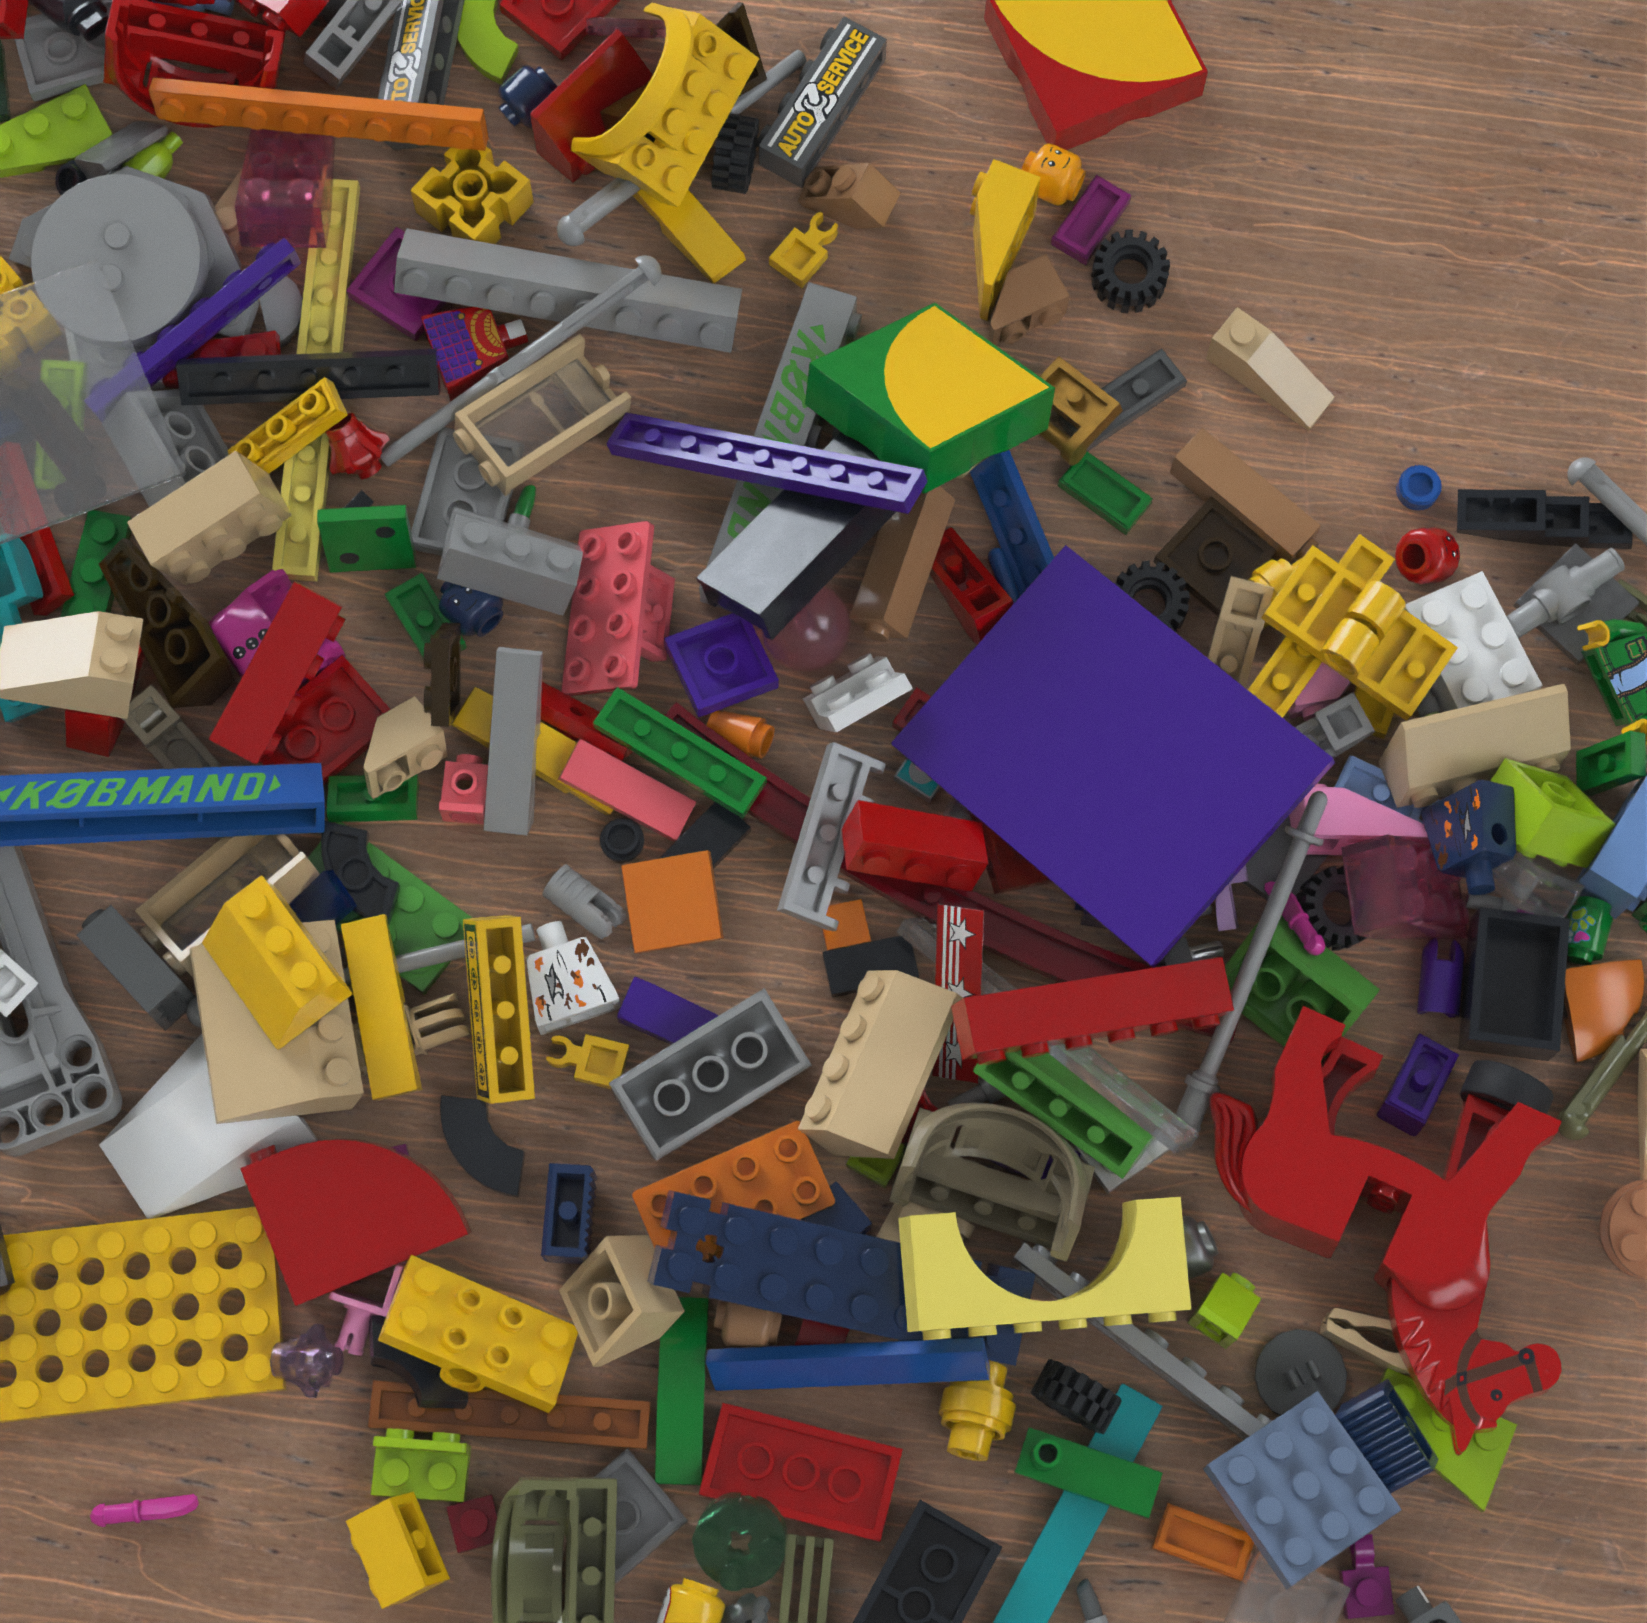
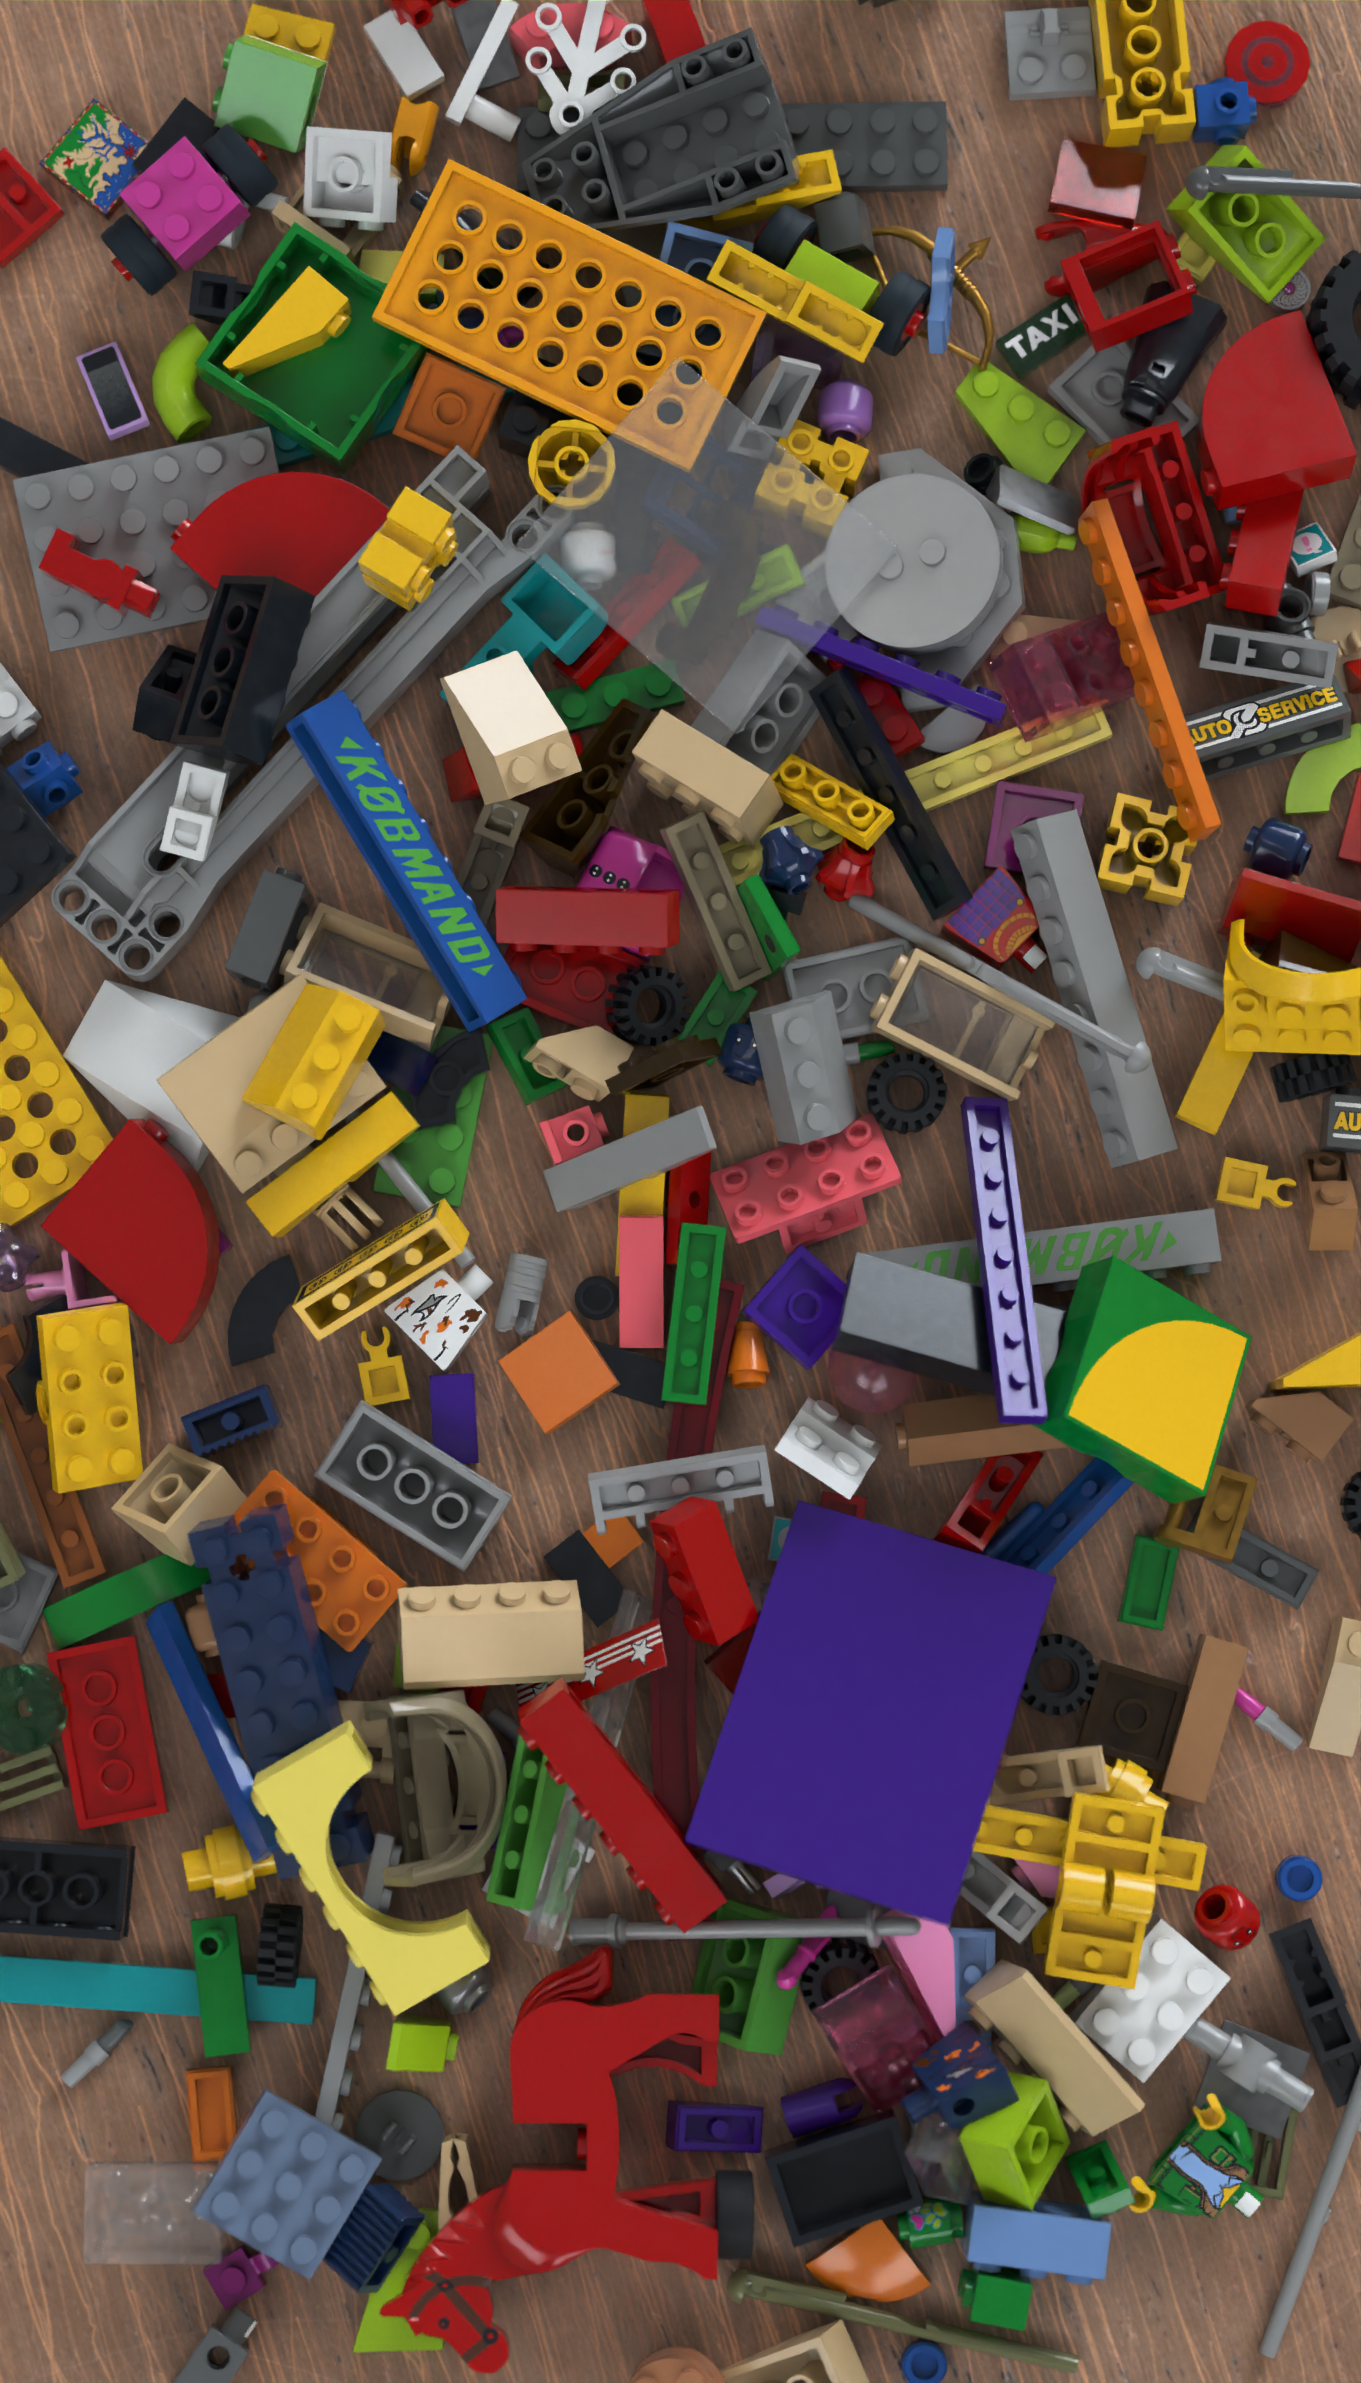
camera: 65 degrees right, 10 degrees up
(319, 486) = (788, 860): none -> dark blue rock
(322, 562) = (715, 901): none -> dark tan plate
(388, 650) = (625, 1002): none -> black tyre
(570, 468) = (911, 1066): none -> black tyre
(1272, 449) = (1267, 1720): none -> light grey piece

